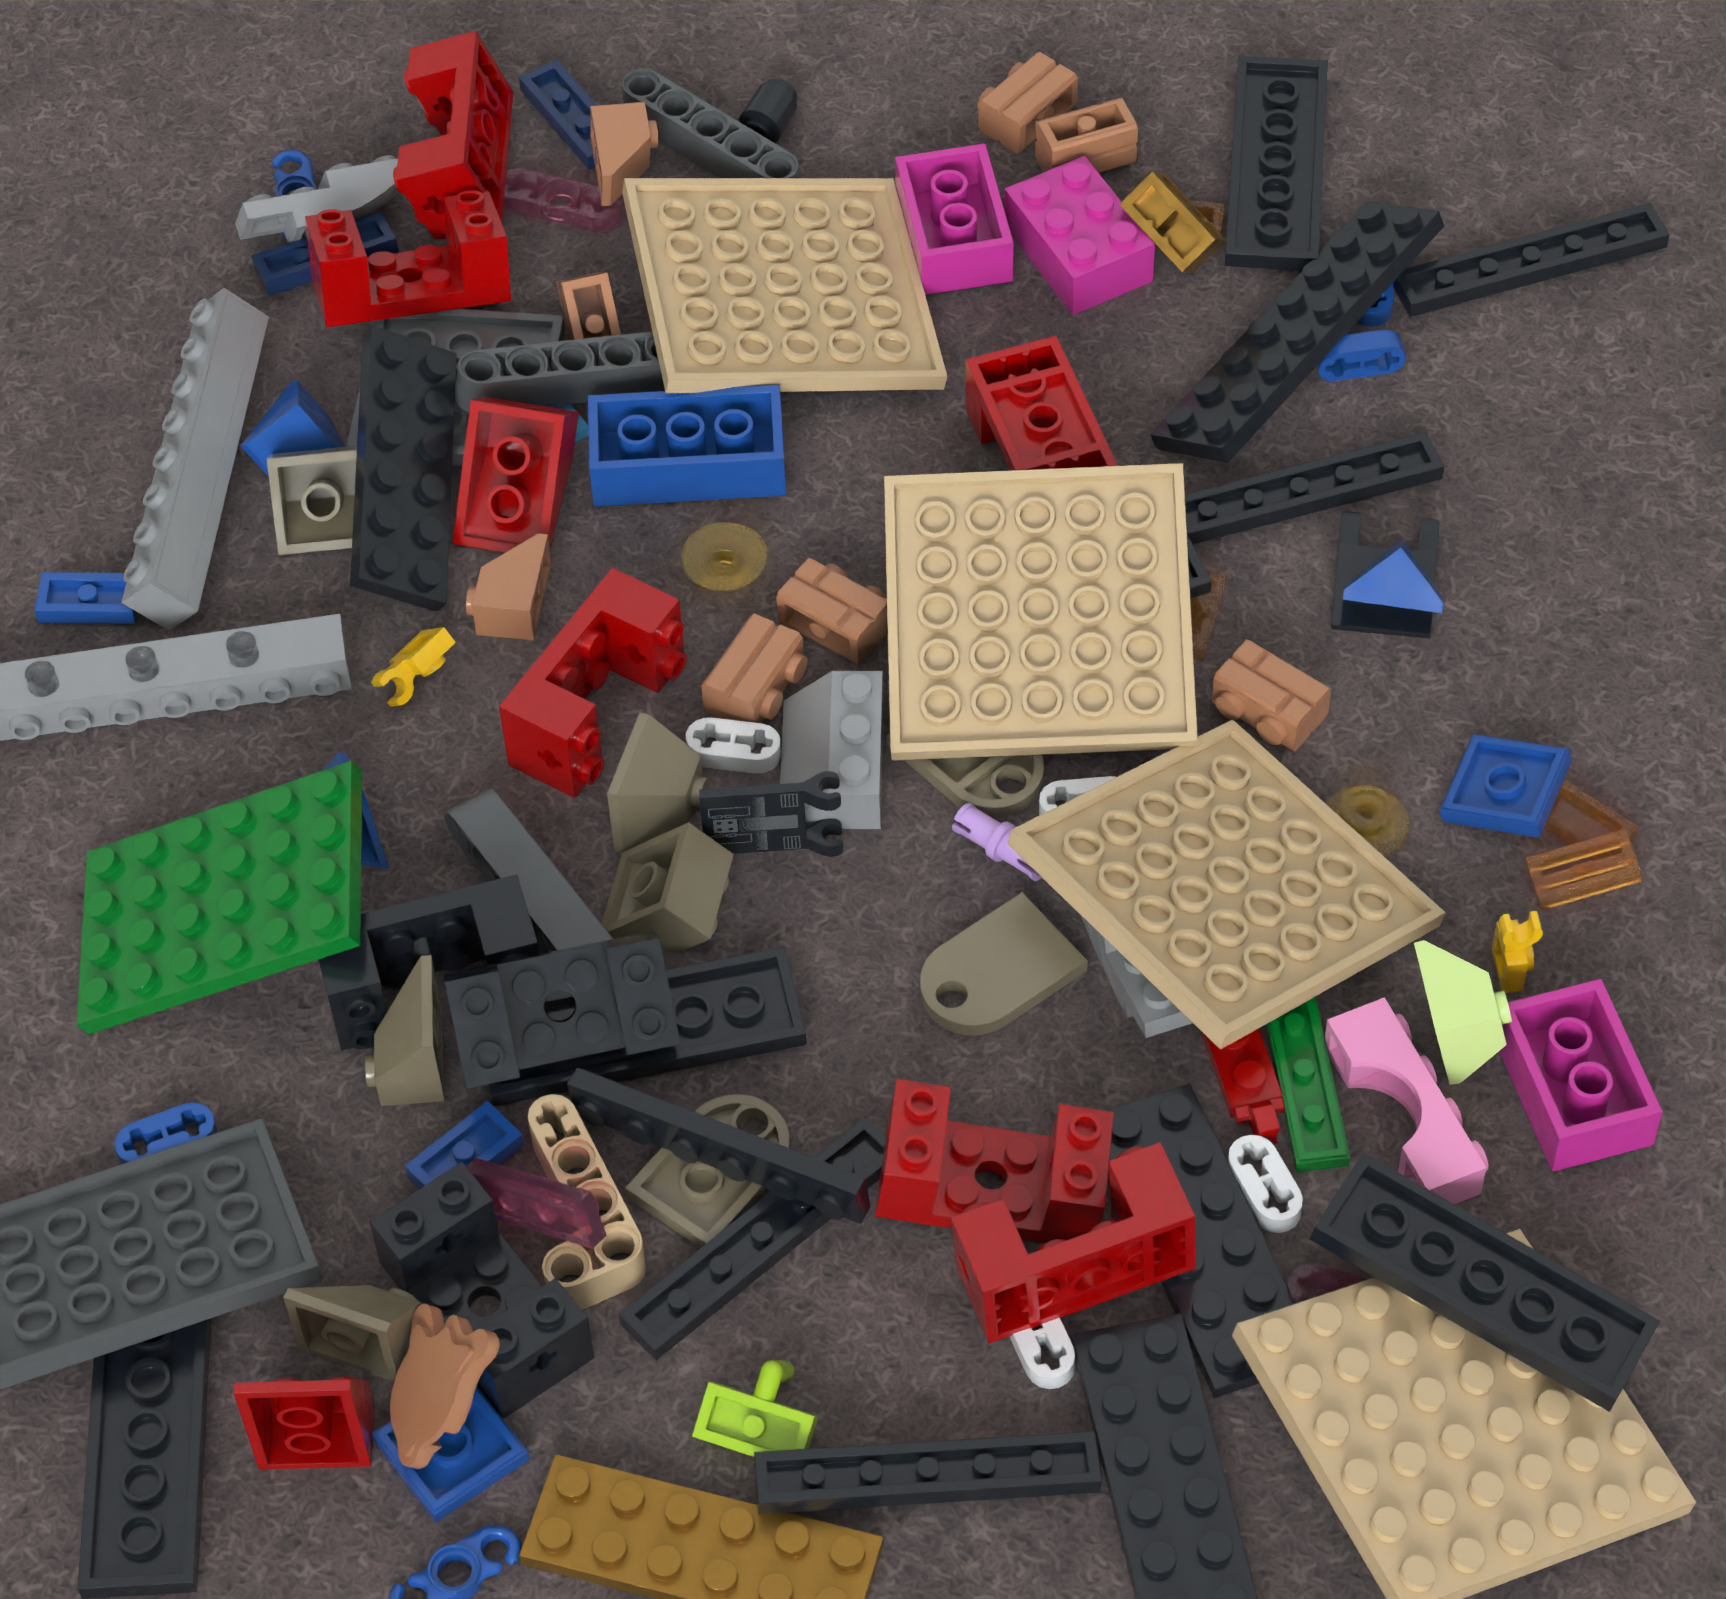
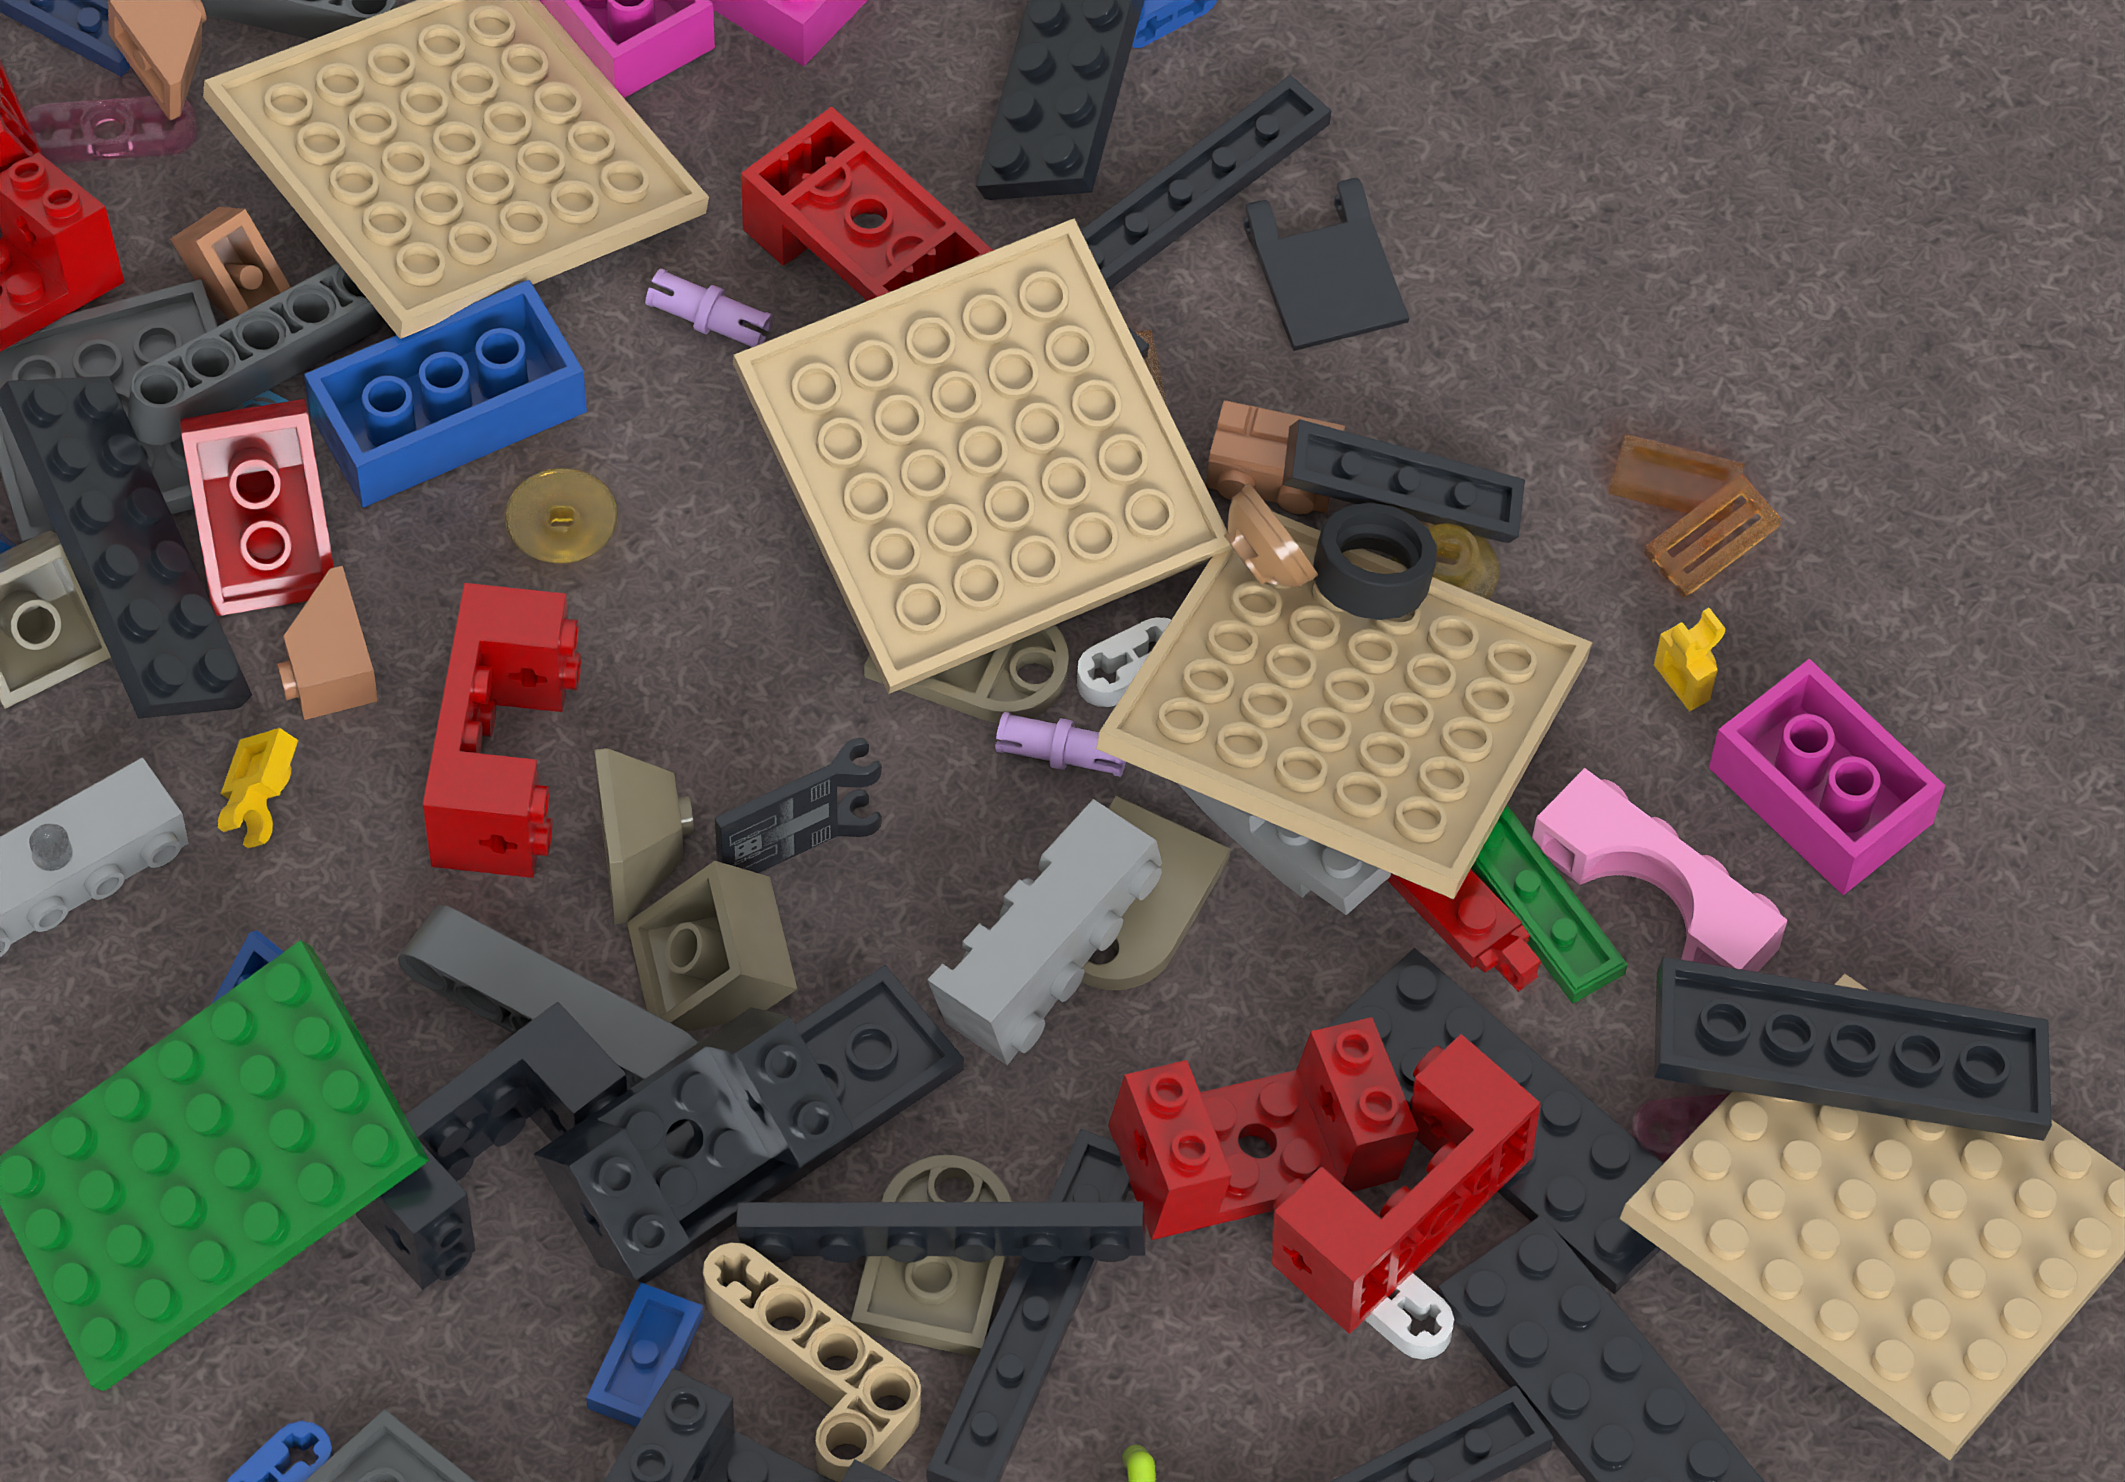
camera: 30 degrees left, 5 degrees up
(410, 1043) = (520, 1250): dark tan slope -> none
(540, 1203) = (784, 1378): clear pink plate -> none
(734, 745) = (691, 742): white beam -> none
(755, 672) = (672, 647): nougat brick -> none
(834, 610) = (726, 534): nougat brick -> none
(840, 730) = (809, 692): light grey slope -> none
(906, 451) = (708, 309): none -> lavender pin
(908, 964) = (1047, 933): none -> light grey wedge
(1217, 744) = (1265, 543): none -> medium nougat piece
(1274, 1178) = (1553, 1026): white beam -> none
(1295, 816) = (1367, 592): none -> black tyre
(1354, 742) = (1416, 482): none -> black plate
(1395, 581) = (1347, 271): slope -> none
(1463, 1010) = (1676, 751): yellowish green slope -> none
(1506, 785) = (1582, 468): blue tile -> none

